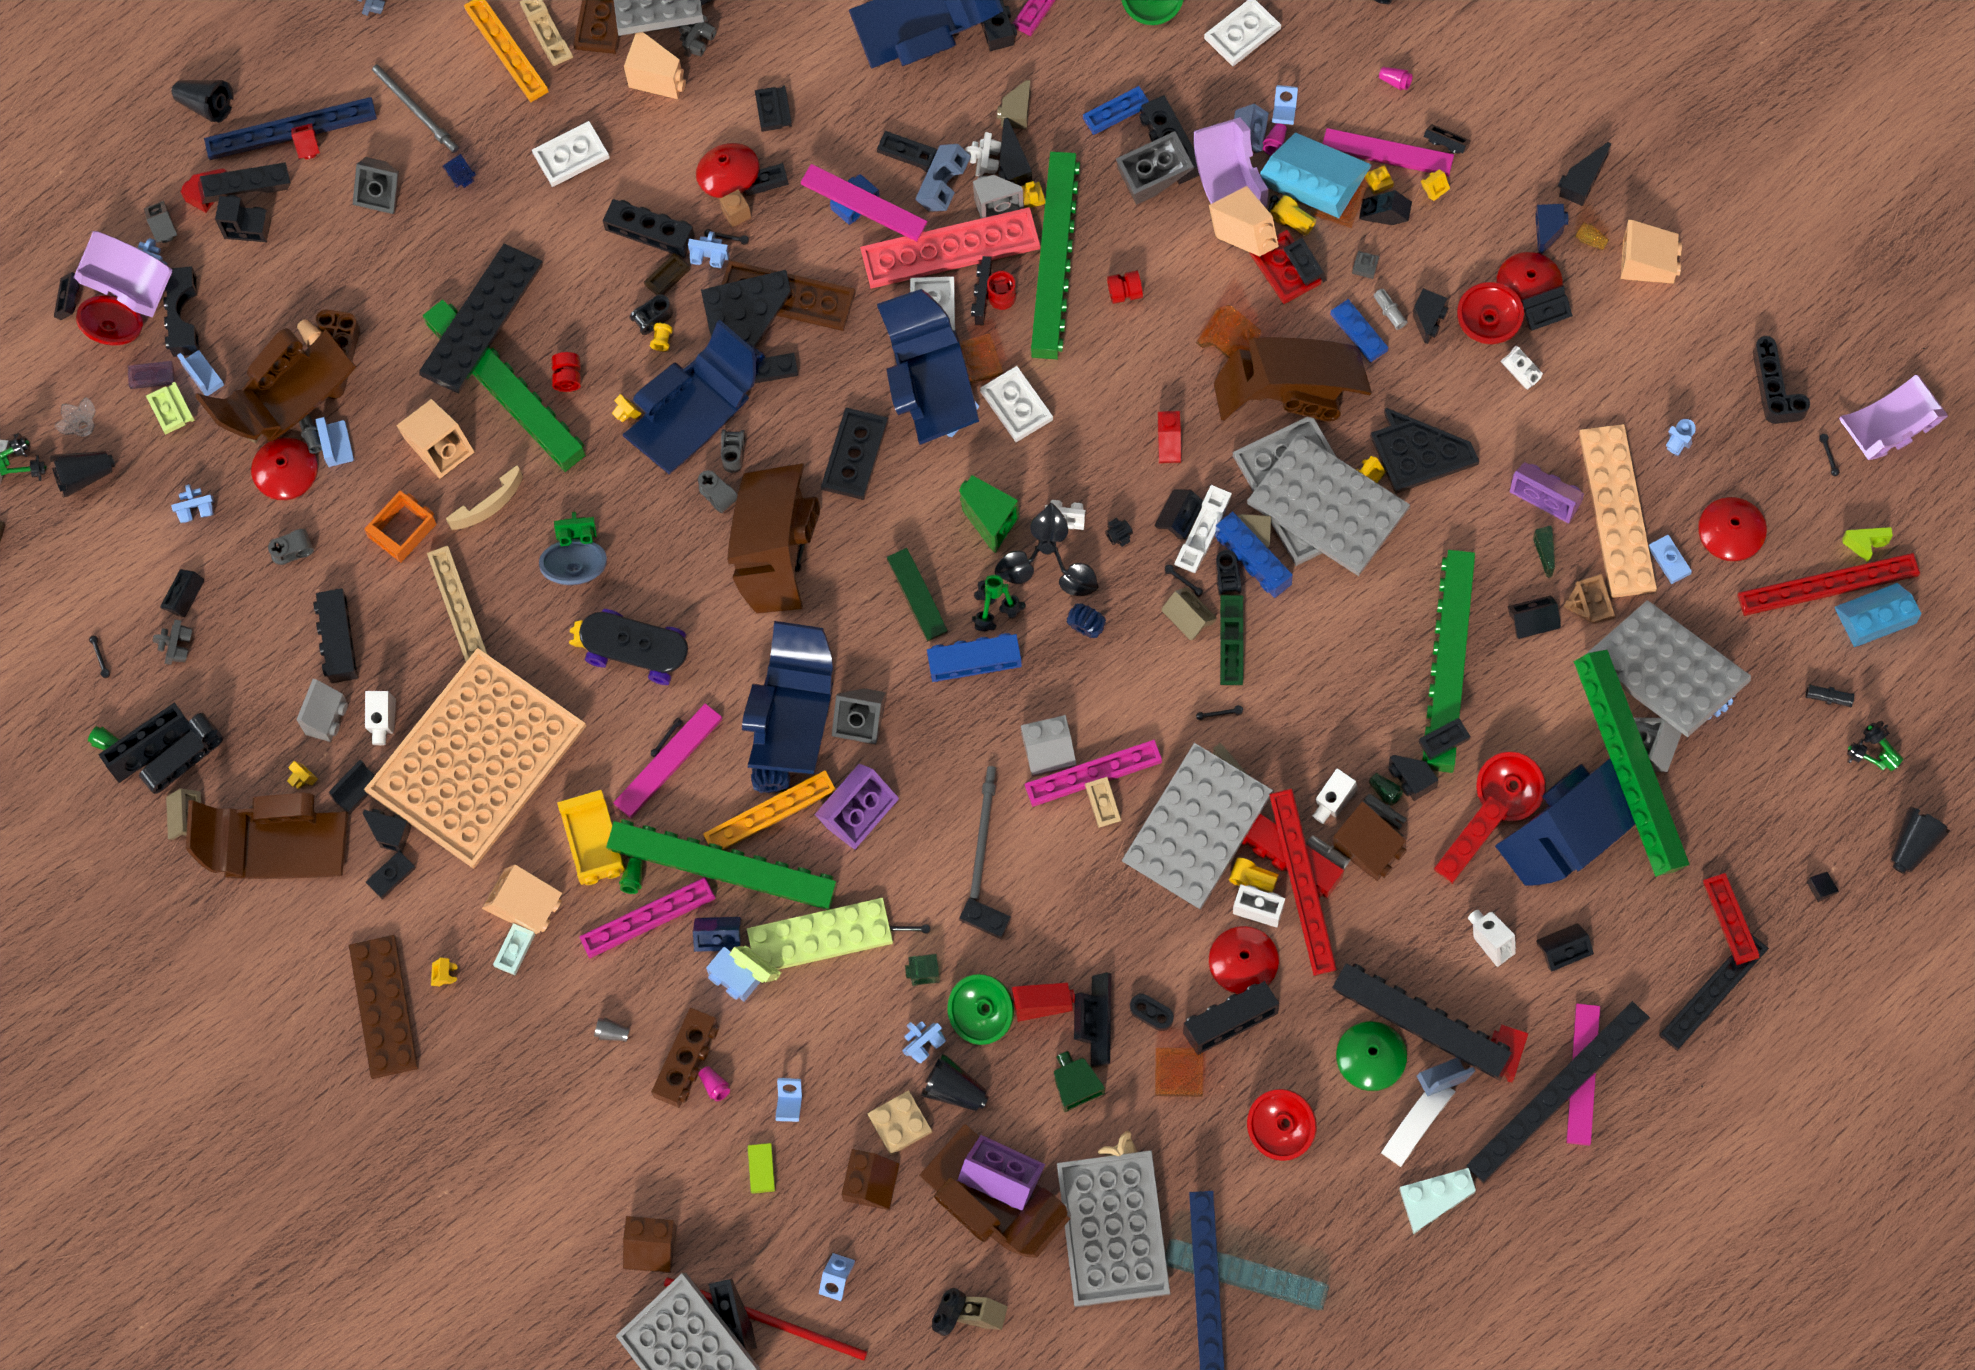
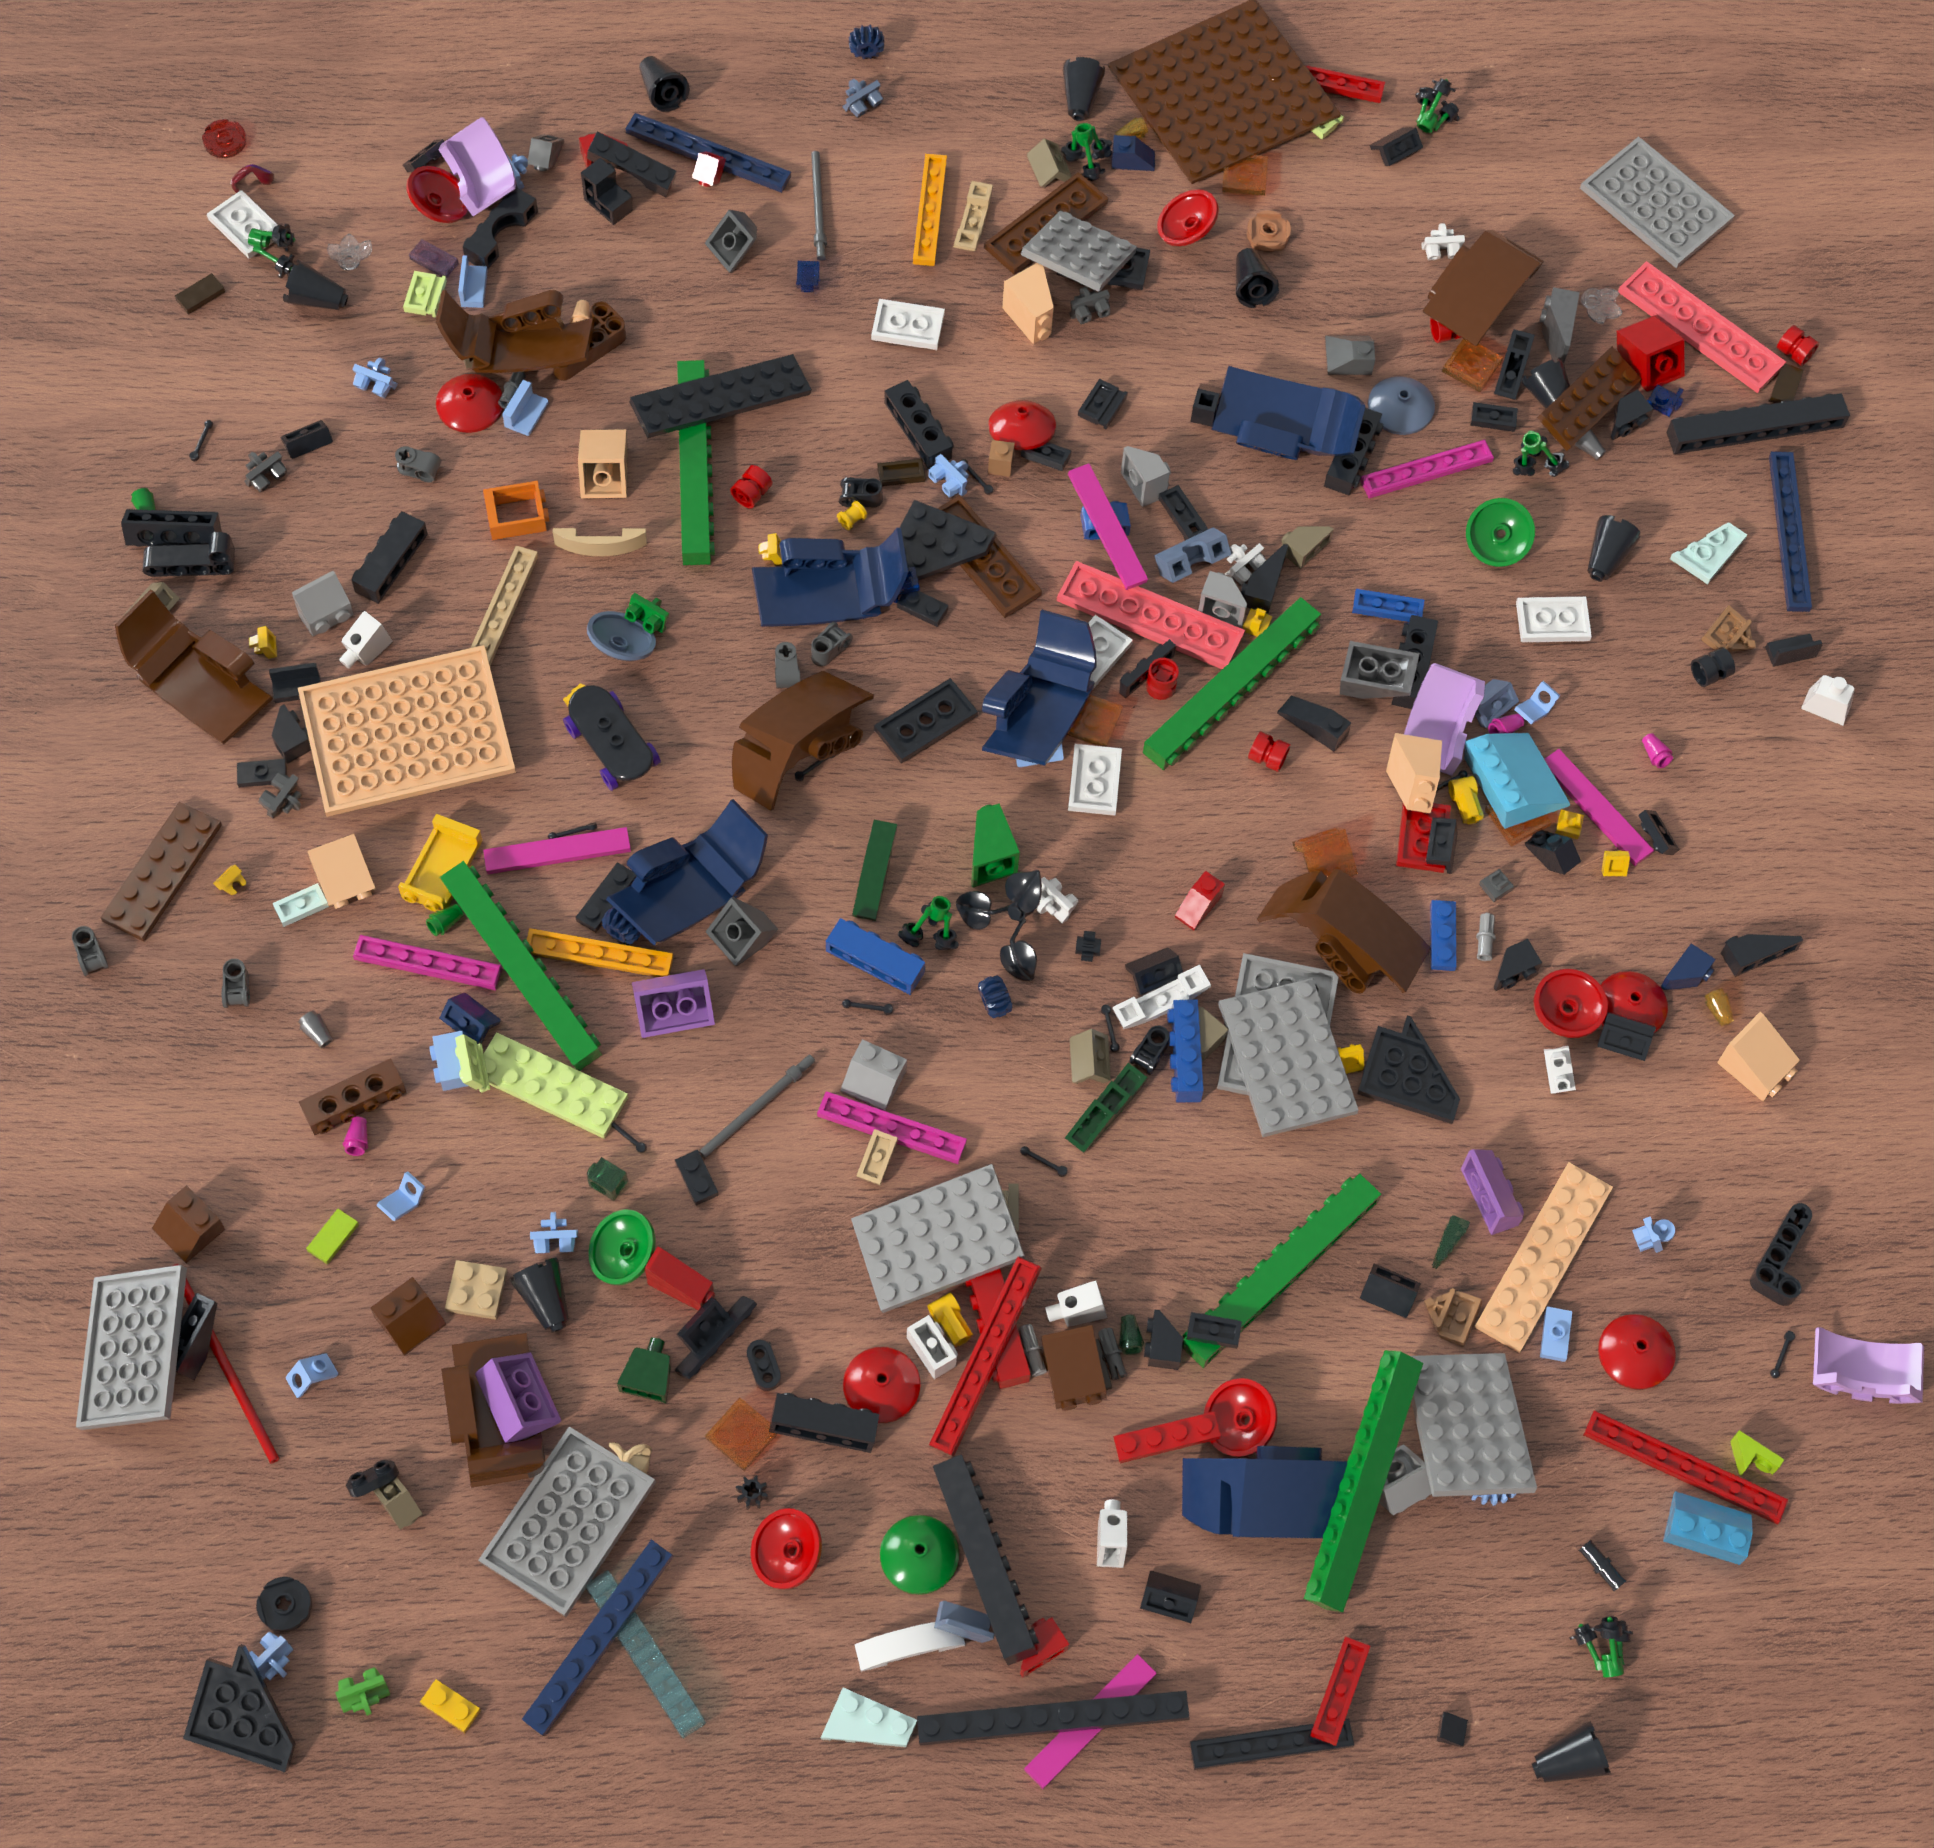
camera: 30 degrees right, 5 degrees down
(390, 1110) = (89, 954): none -> dark grey piece
(424, 889) = (286, 786): none -> dark grey hips
(524, 1048) = (235, 988): none -> dark grey piece
(736, 767) = (597, 905): none -> black plate
(852, 51) = (1205, 404): none -> black slope
(855, 141) = (1145, 474): none -> light grey slope
(1012, 691) = (887, 1009): none -> black hinge
(1137, 238) = (1317, 721): none -> black slope
(1219, 1112) = (756, 1497): none -> black gear

